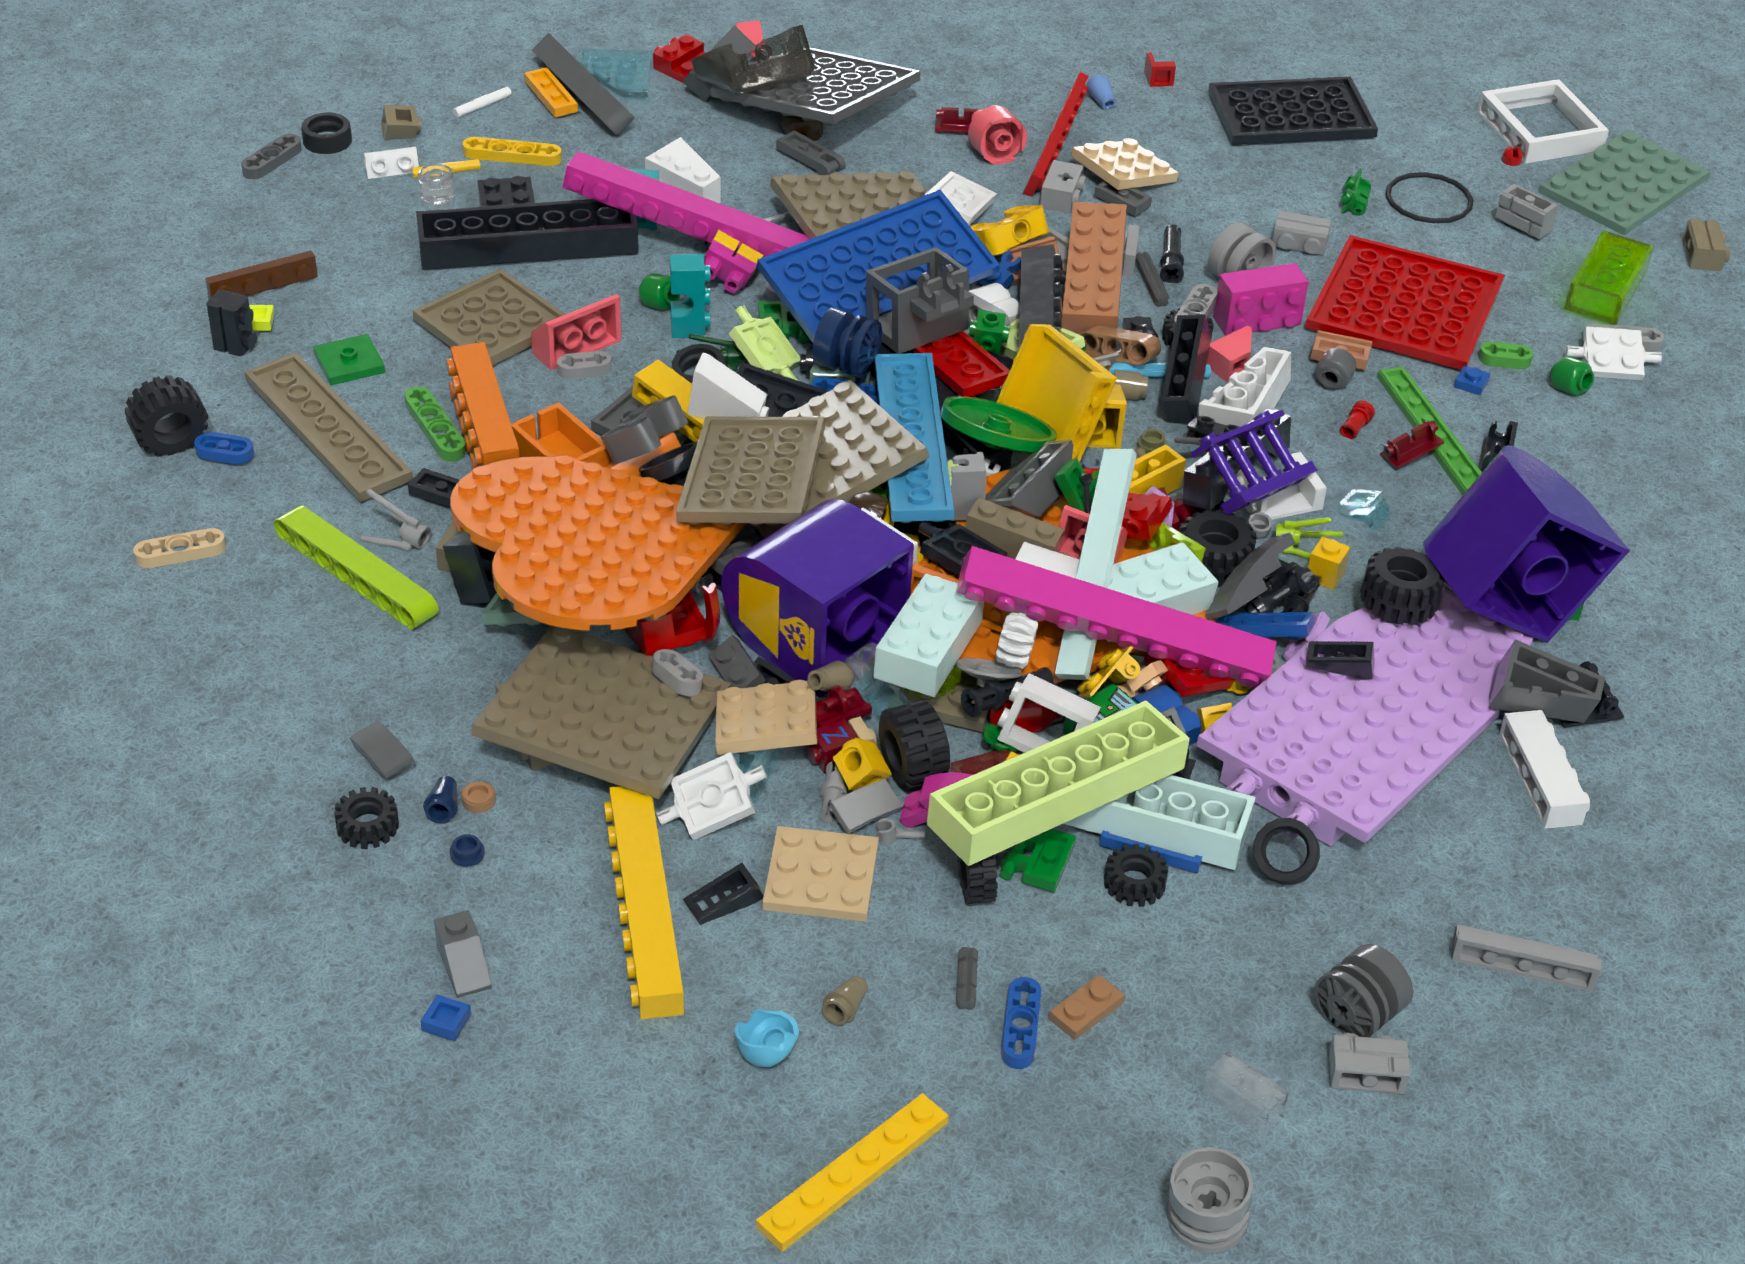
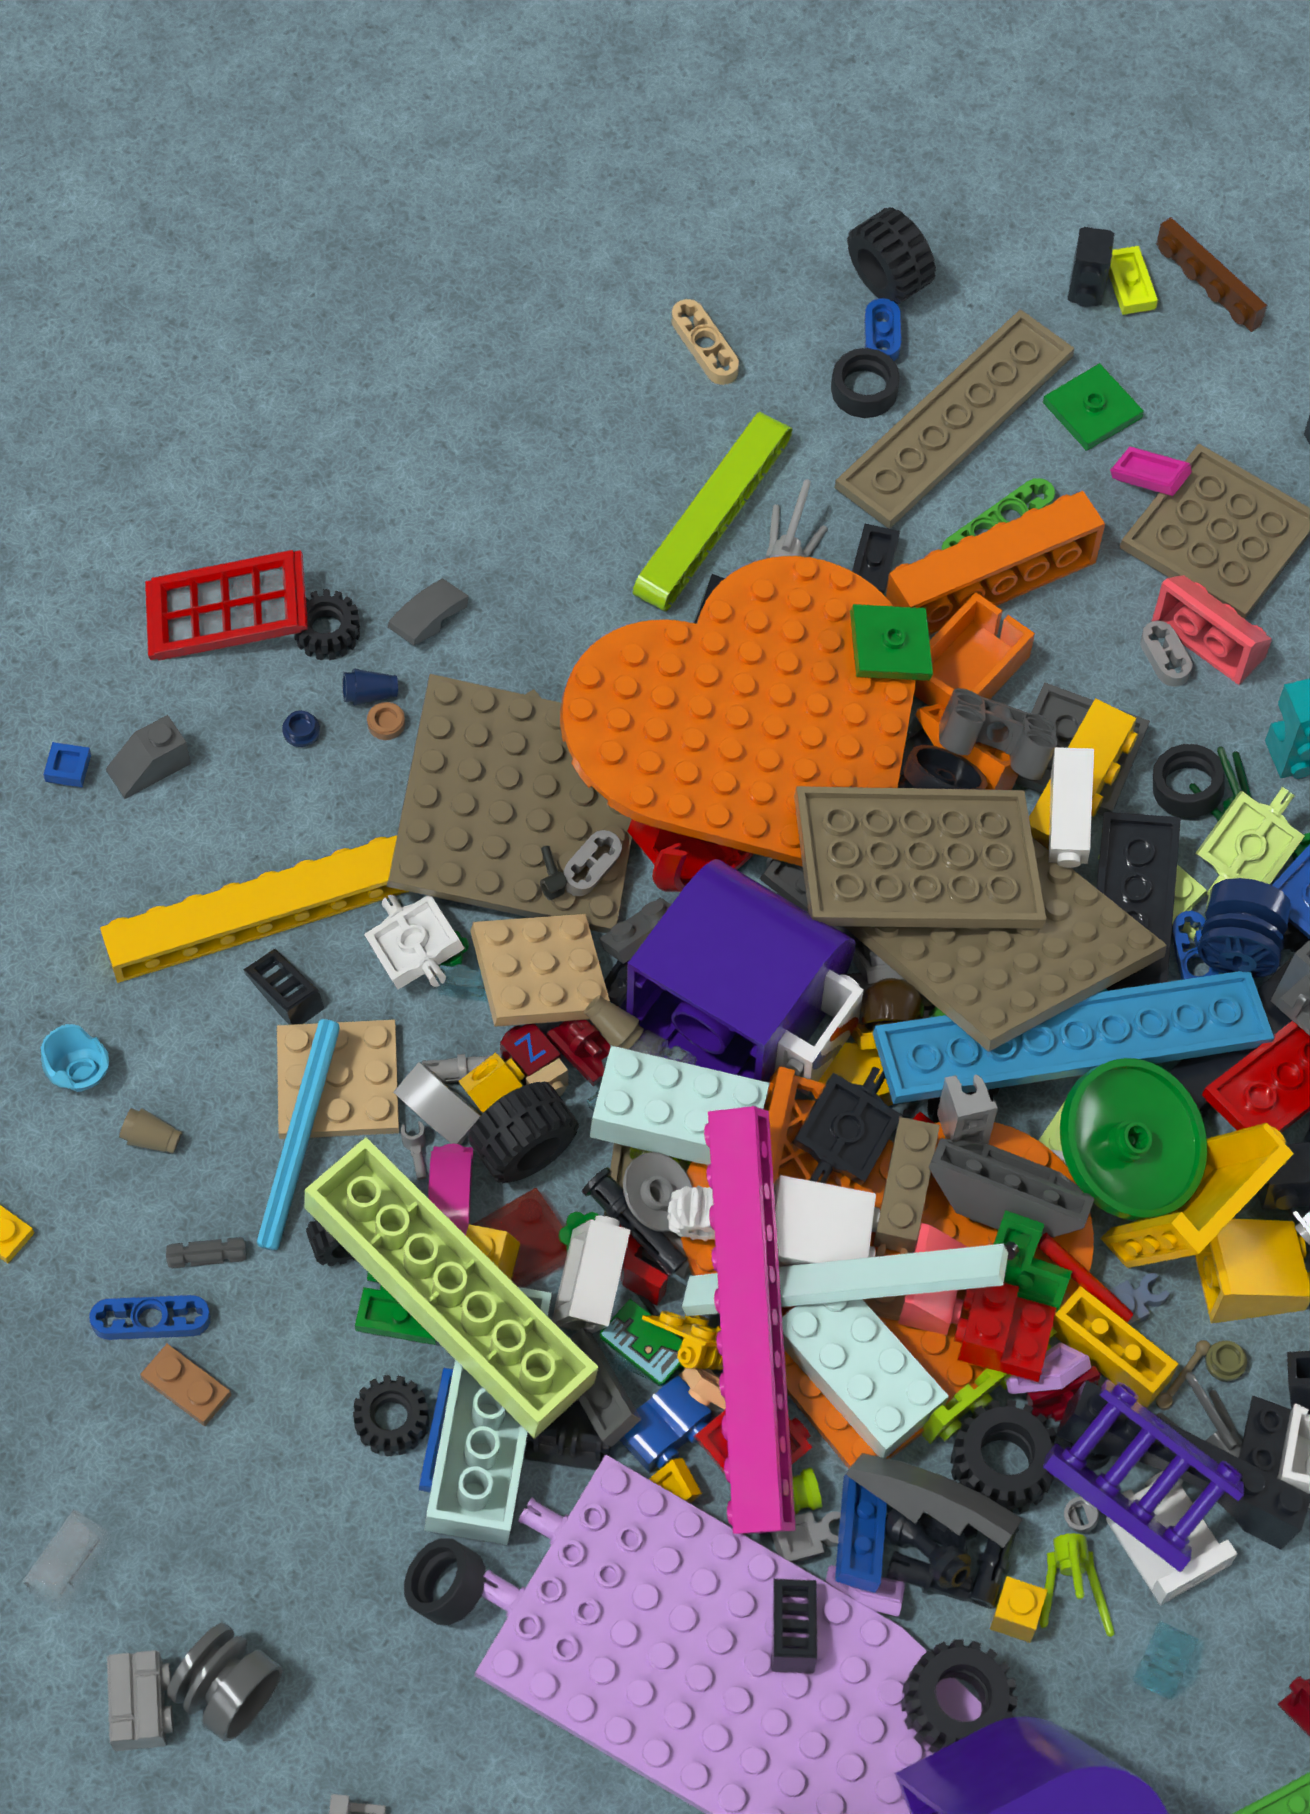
camera: 80 degrees right, 20 degrees up
(274, 478) = (865, 360): none -> black tyre
(320, 879) = (226, 605): none -> red piece
(425, 337) = (1151, 471): none -> dark pink tile
(551, 457) = (891, 642): none -> green plate
(691, 692) = (555, 883): none -> pearl dark grey hand
(877, 891) = (298, 1135): none -> medium azure axle

